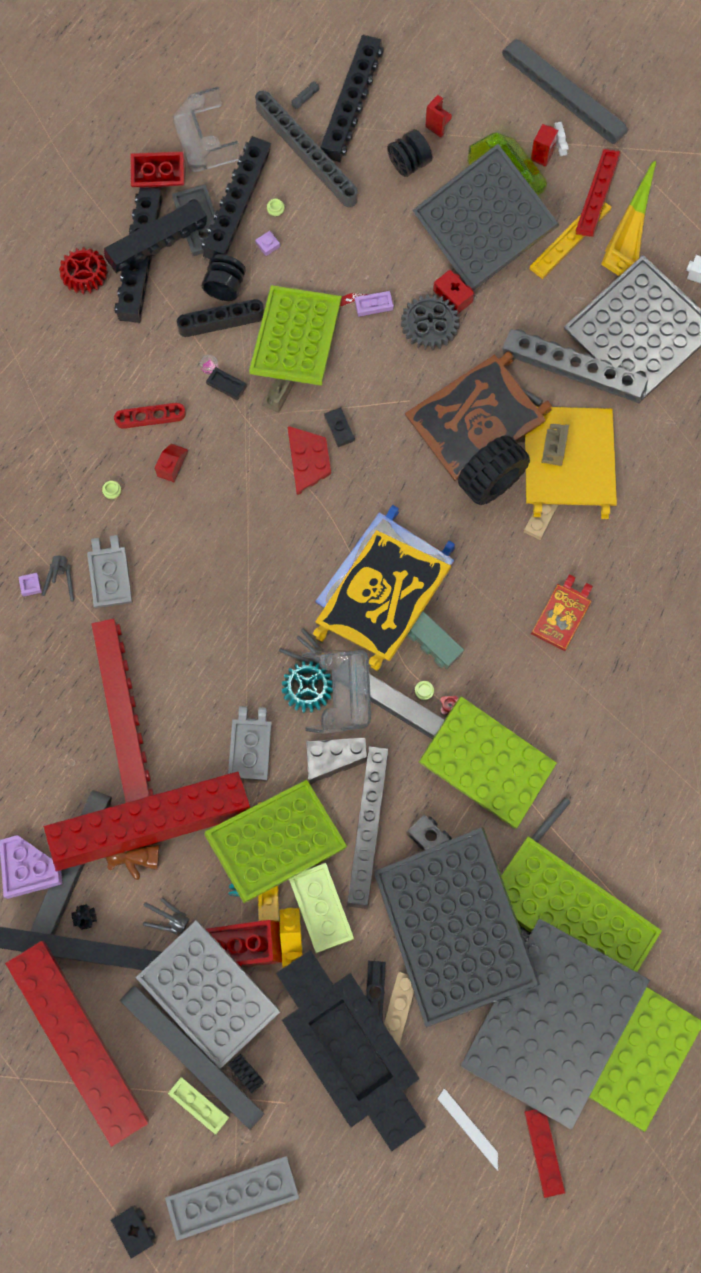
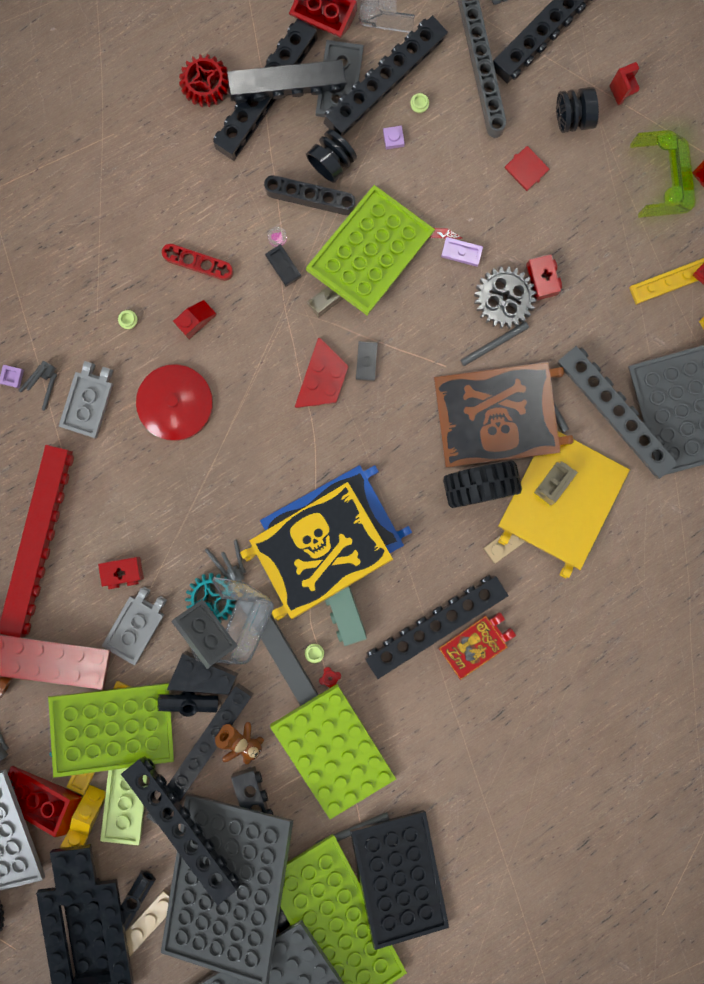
camera: 25 degrees right, 15 degrees up
(188, 539) = (174, 402): none -> red dish
(218, 694) = (109, 572): none -> red brick
(318, 709) = (204, 633): none -> dark grey plate
(344, 782) = (187, 703): none -> black piece
(392, 217) = (527, 168): none -> red piece
(397, 793) = (239, 744): none -> dark orange piece
(427, 383) = (495, 343): none -> dark grey bar
(450, 923) = (181, 841): none -> black brick
(485, 217) = (614, 217): dark grey plate -> none
(549, 556) = (496, 594): none -> black brick
(608, 847) = (399, 879): none -> black plate

